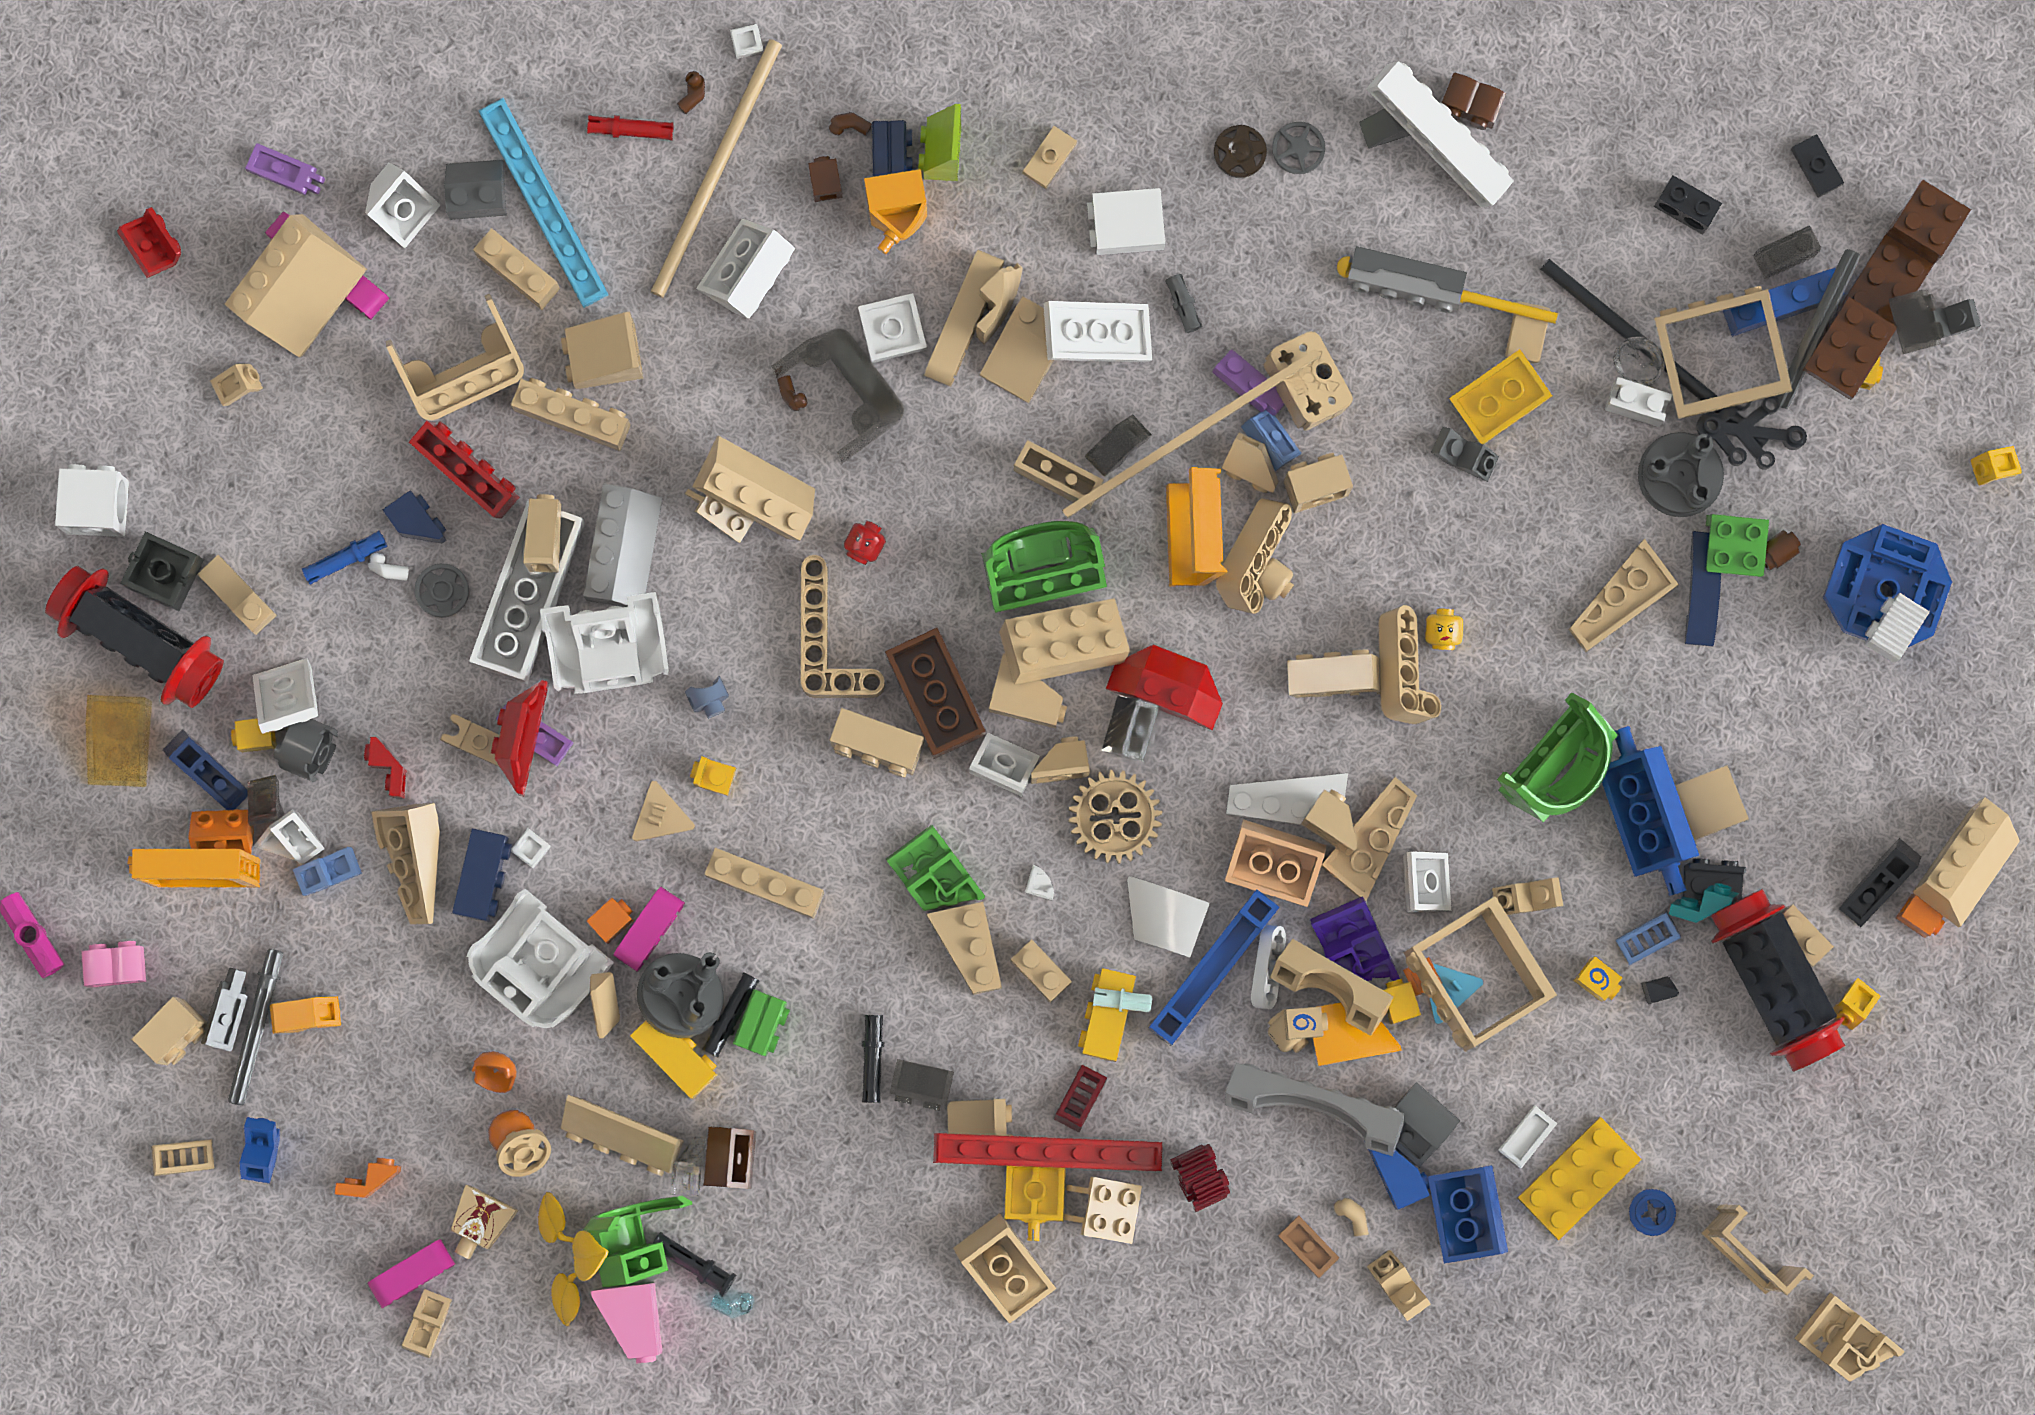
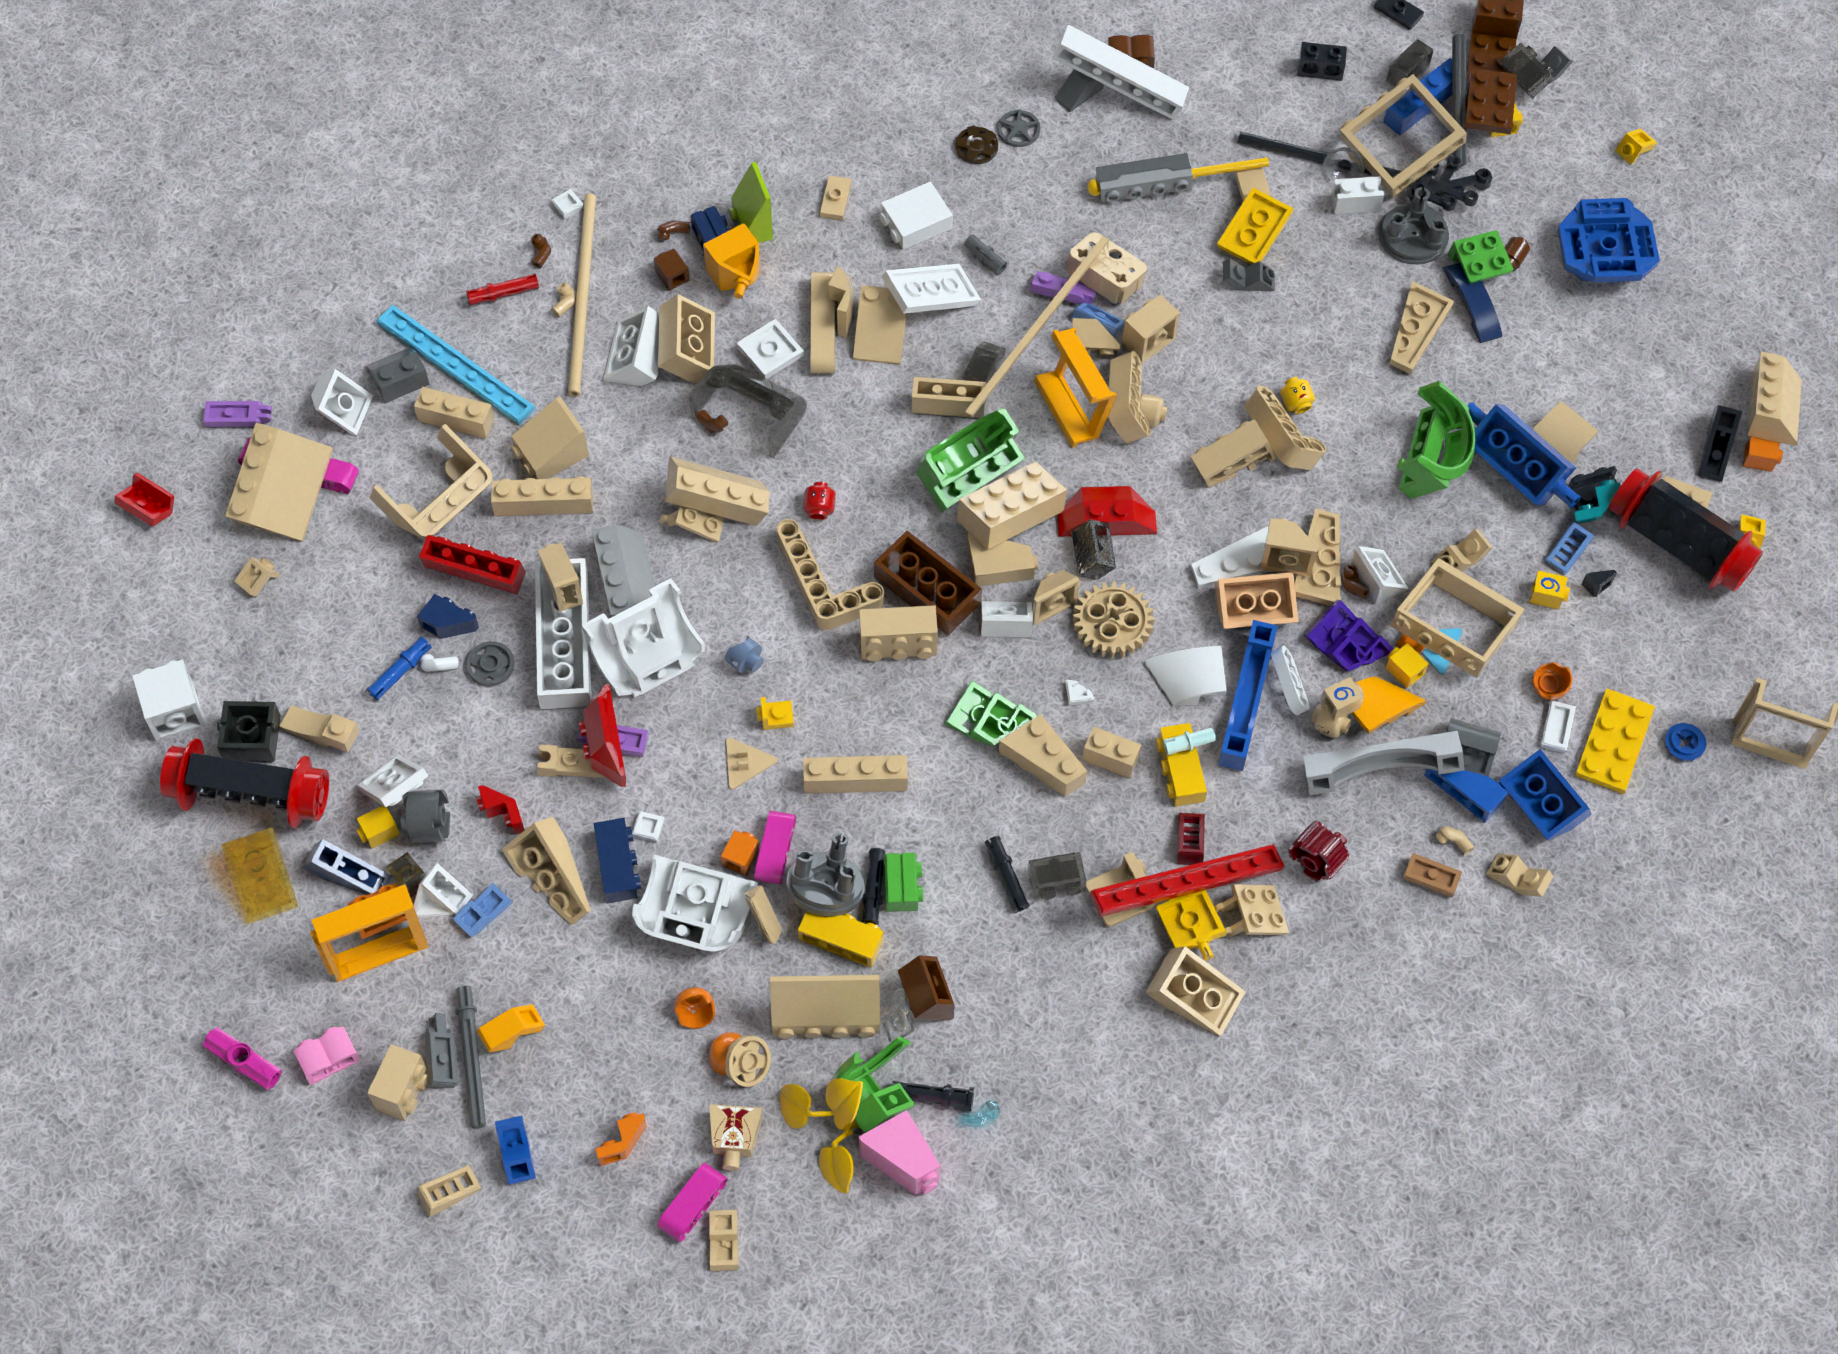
camera: 20 degrees left, 20 degrees down
(696, 169) = (567, 299): none -> tan arm
(801, 285) = (686, 338): none -> tan brick
(1304, 968) = (1375, 668): tan arch -> none
(1392, 879) = (1351, 582): none -> reddish brown arm
(1545, 1087) = (1552, 681): none -> orange hair
(1896, 627) = (1632, 257): white brick -> none

